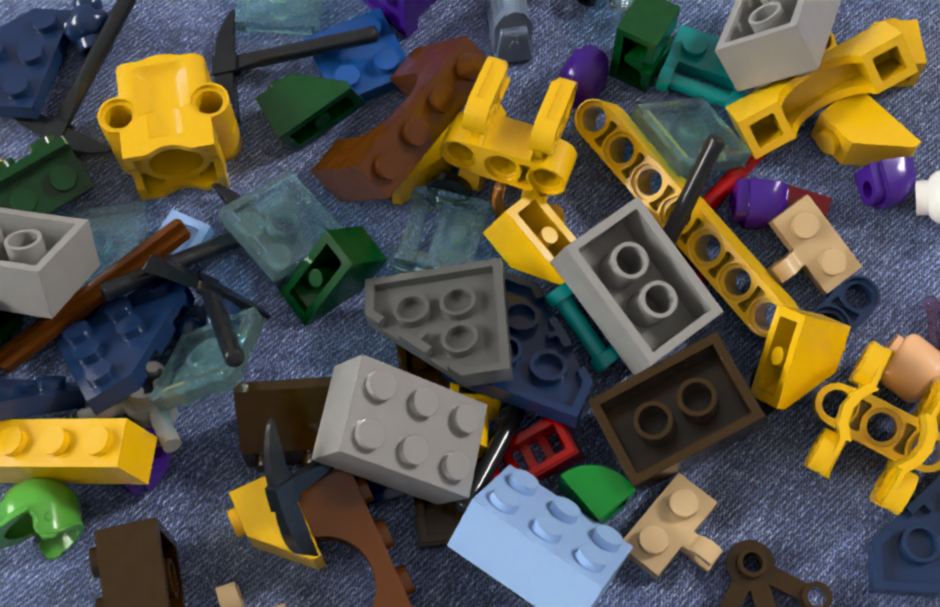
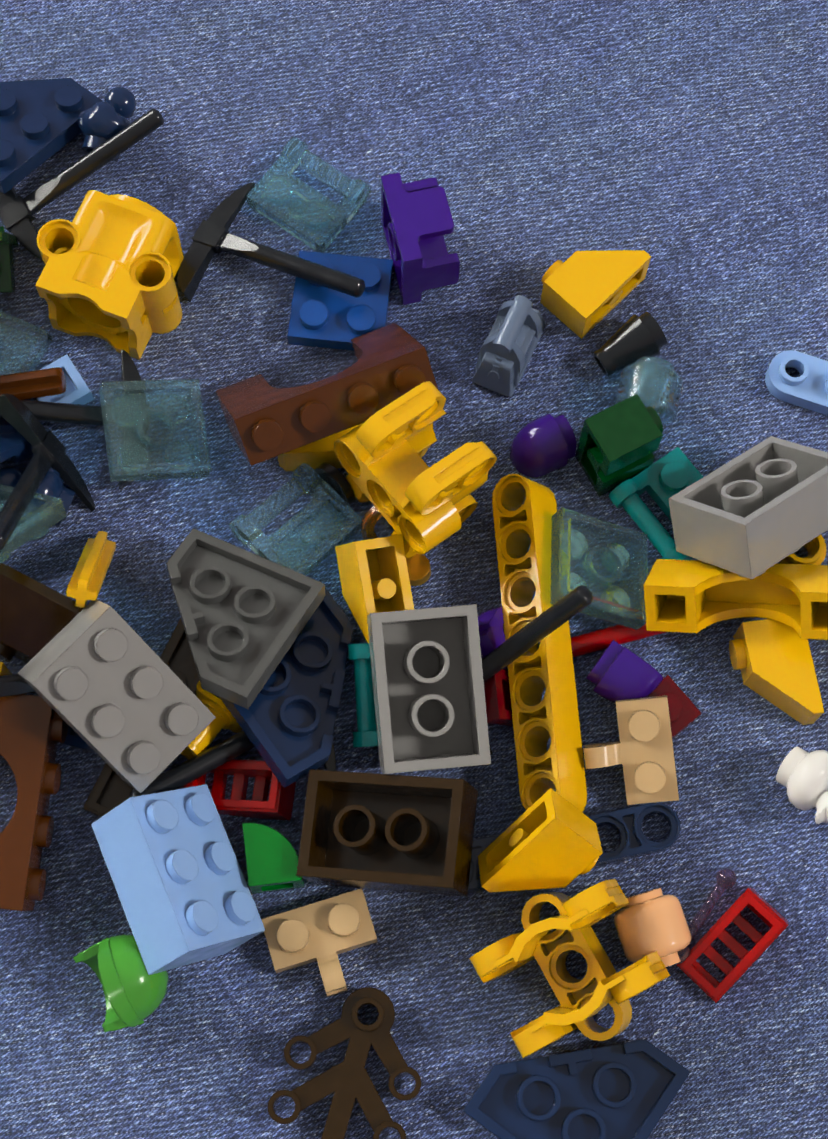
camera: 30 degrees right, 5 degrees up
(307, 107) = (248, 326): dark green slope -> none
(310, 352) = (91, 569): none -> yellow axle
(332, 272) = (173, 502): dark green slope -> none
(886, 182) = (768, 732): dark purple piece -> none

